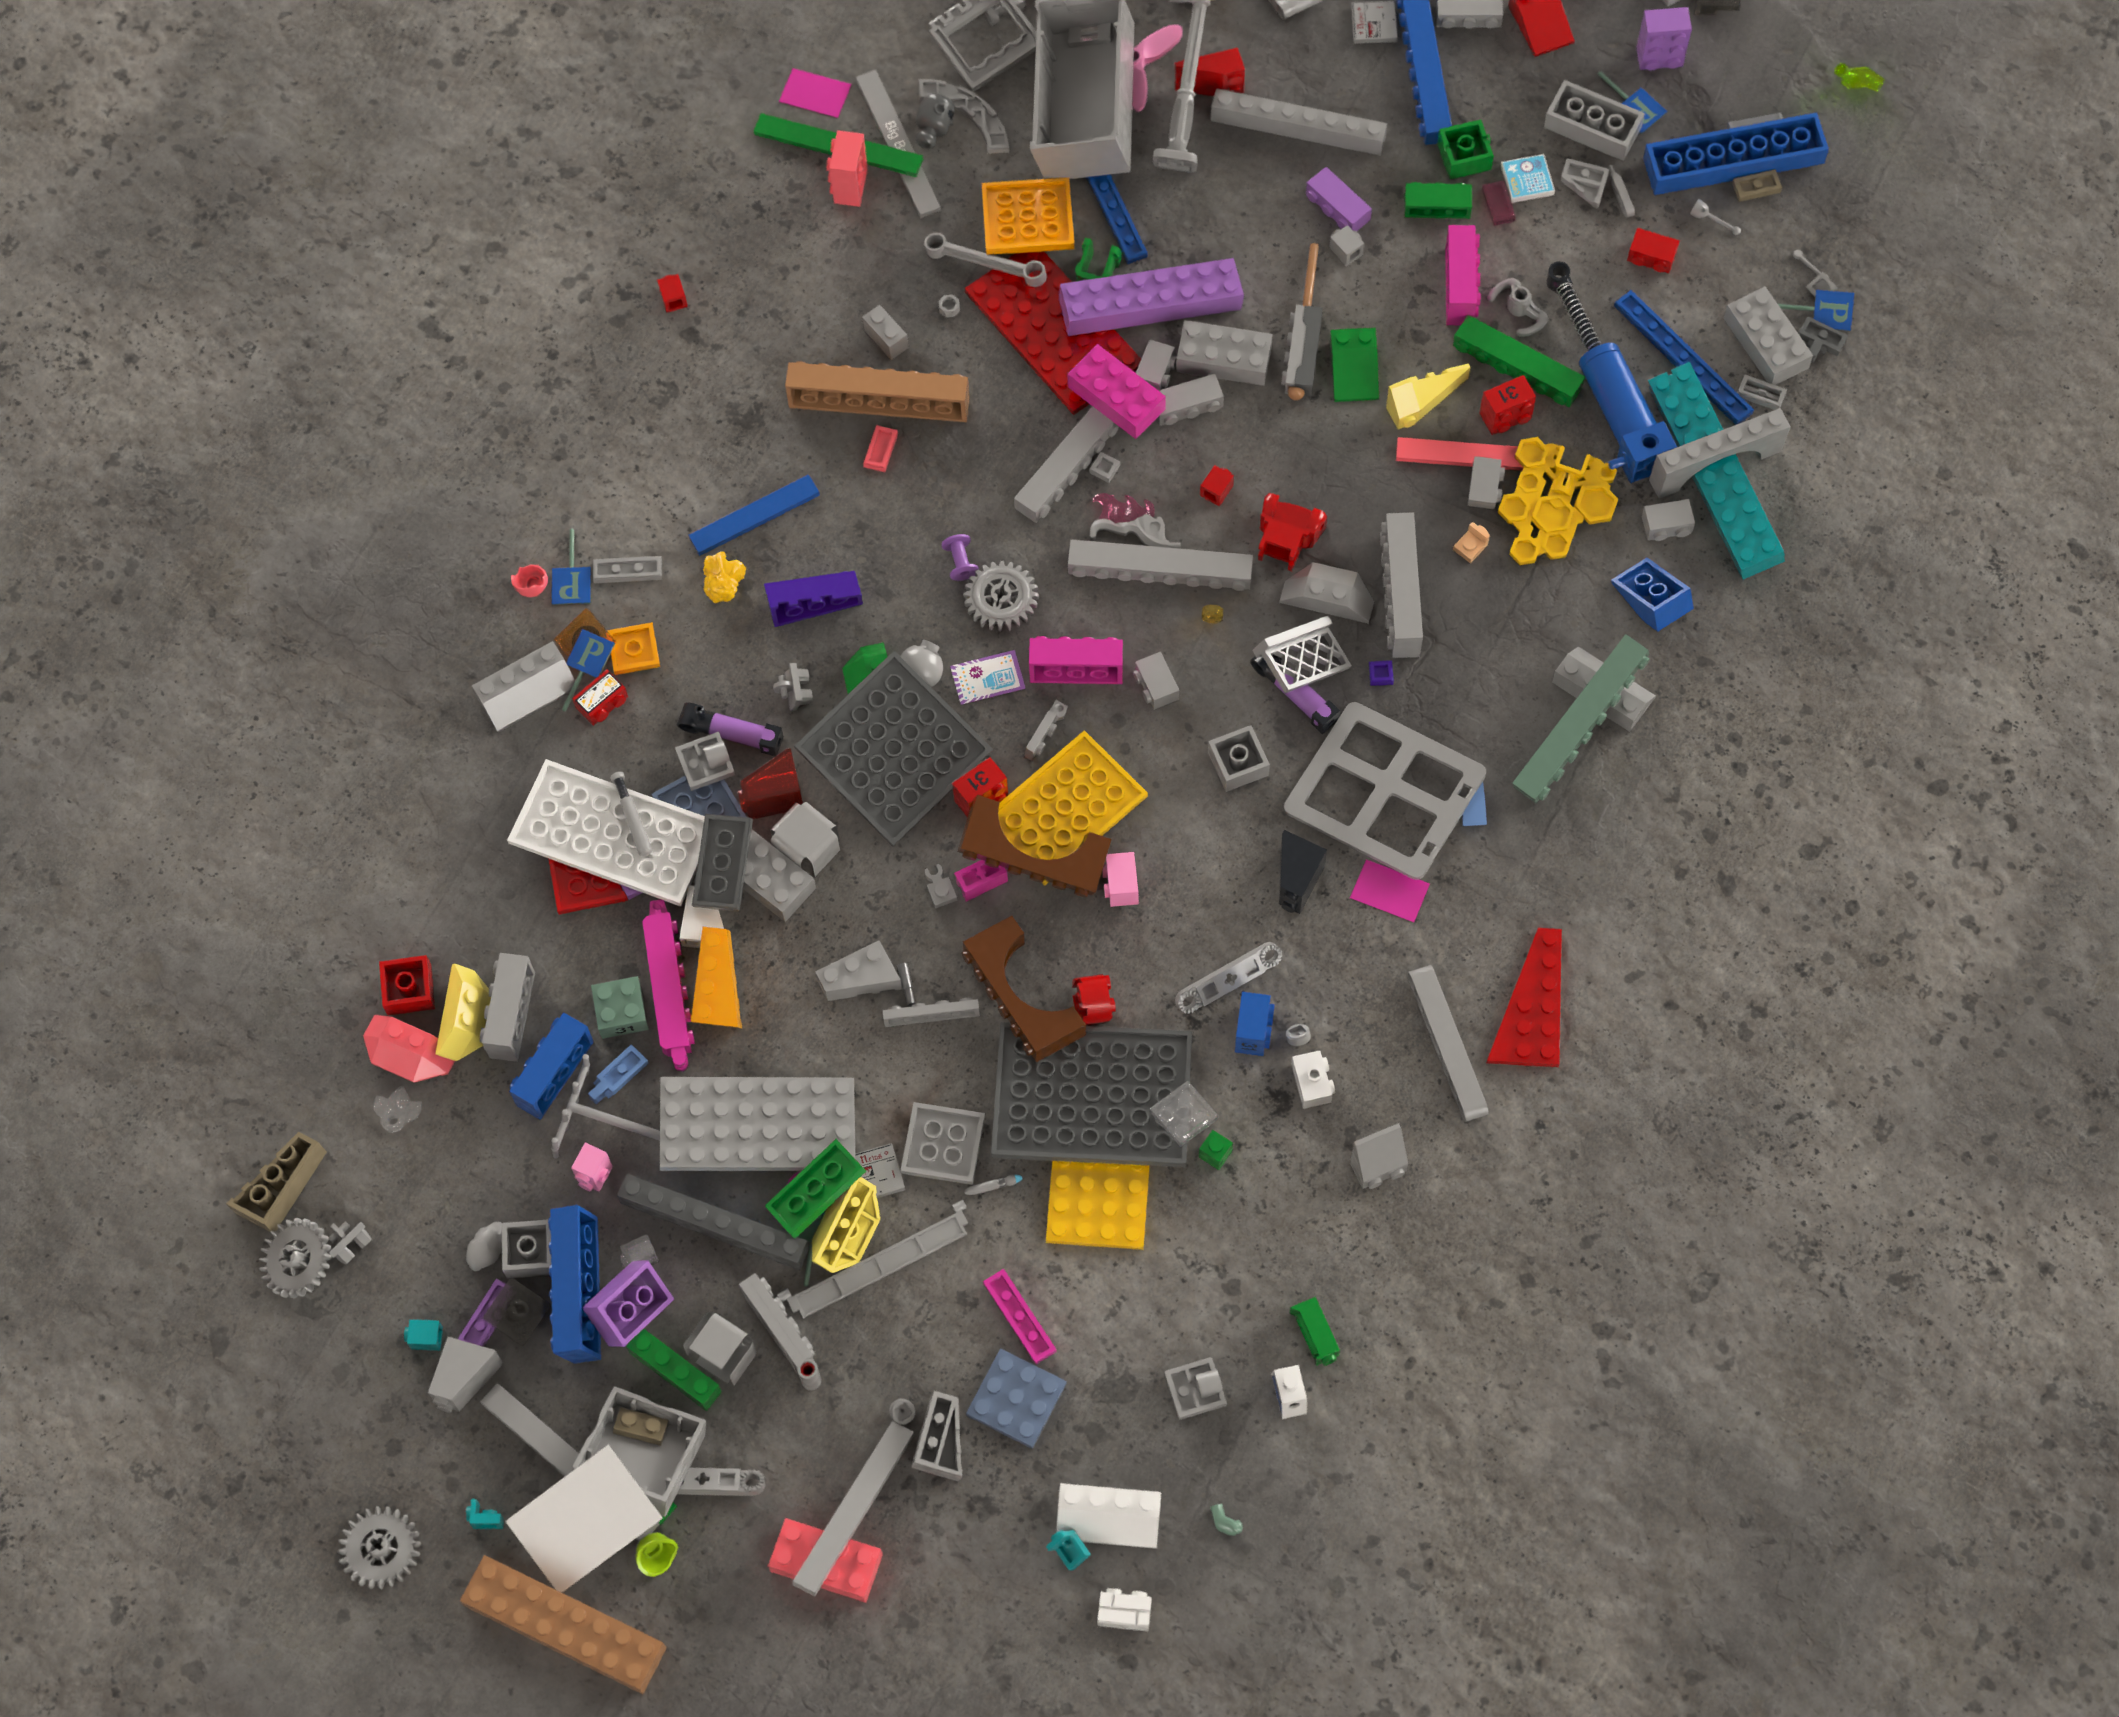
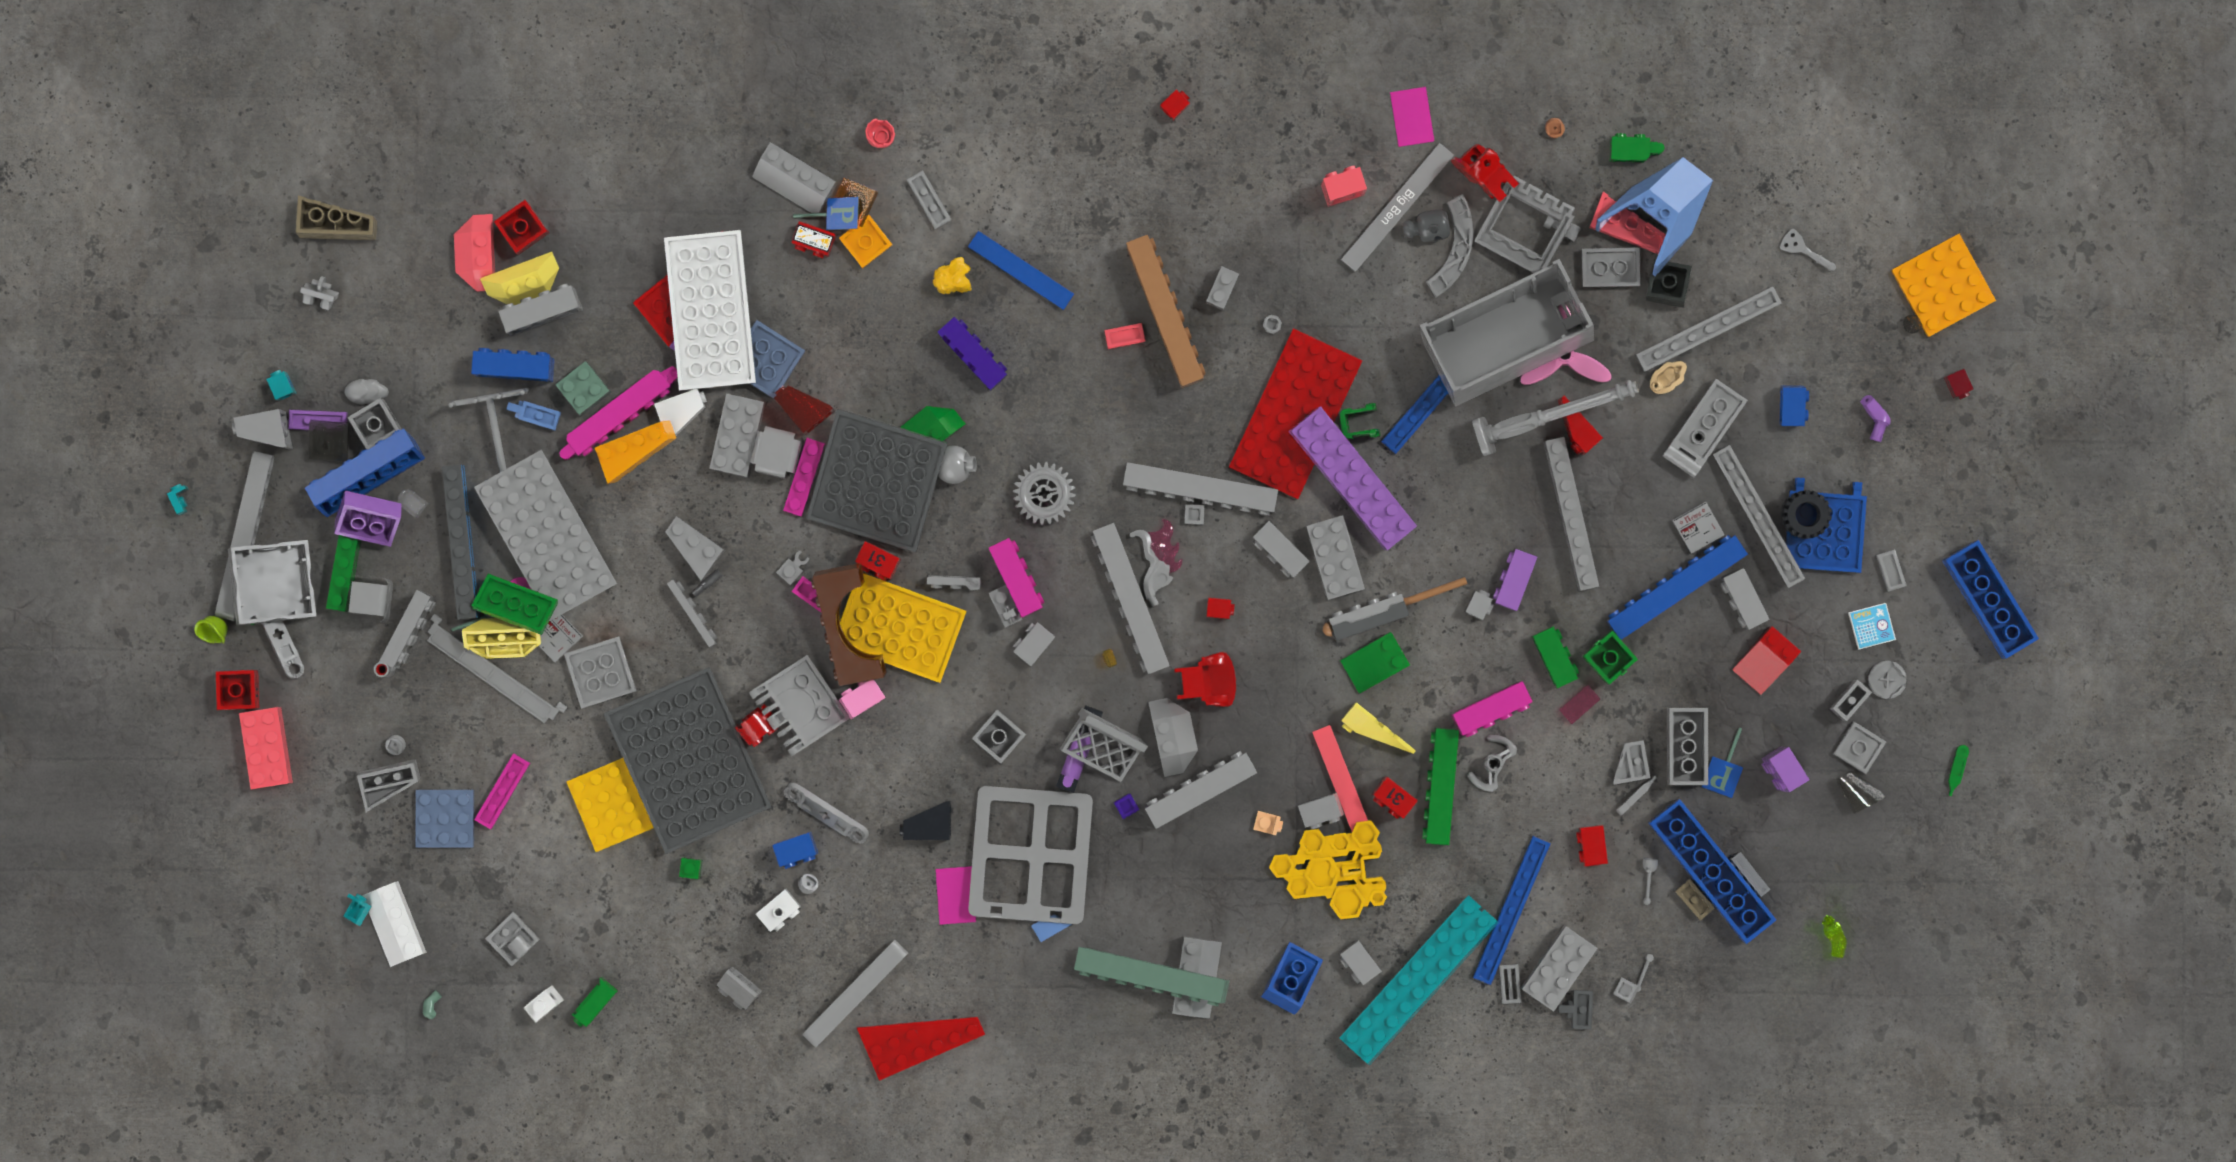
camera: 65 degrees right, 20 degrees up
(286, 1255) = (283, 252): light grey gear -> none
(395, 1528) = (105, 436): light grey gear -> none
(398, 1107) = (434, 271): clear plate -> none
(563, 1624) = (134, 594): medium nougat brick -> none
(573, 583) = (897, 164): blue piece -> none
(584, 1519) = (204, 572): white sticker -> none
(591, 1167) = (453, 437): bright pink brick -> none
(637, 830) = (712, 334): light grey piece -> none
(640, 1426) = (292, 572): dark tan plate -> none
(697, 719) = (837, 348): piece -> none
(705, 761) = (798, 346): light grey plate -> none
(722, 862) = (722, 405): dark grey tile -> none
(740, 1557) = (237, 689): none -> red brick
(790, 687) = (888, 383): light grey hips -> none
(820, 141) = (1370, 162): green tile -> none
(850, 830) = (804, 477): none -> dark pink plate
(853, 1508) = (306, 750): light grey tile -> none
(911, 42) = (1487, 177): none -> red piece
(957, 545) = (1062, 444): medium lavender piece -> none
(985, 260) = (1322, 332): light grey piece -> none
(987, 677) = (977, 515): sticker -> none
(993, 1184) = (589, 723): light grey piece -> none
(1027, 216) = (1378, 345): light orange plate -> none
(1039, 1029) = (755, 633): reddish brown arch -> none
(1094, 940) = (801, 703): none -> light grey hinge
(1101, 688) = (1005, 606): none -> light grey hinge
(1116, 391) = (1251, 496): dark pink brick -> none
(1124, 1610) = (334, 967): white brick -> none
(1157, 363) = (1296, 511): light grey brick -> none
(1184, 1113) = (700, 835): clear plate -> none
(1527, 178) = (1613, 717): tile -> none
(1614, 389) = (1449, 873): blue piece -> none
(1761, 434) = (1430, 978): light grey arch -> none
(1830, 308) = (1609, 1005): blue piece -> none

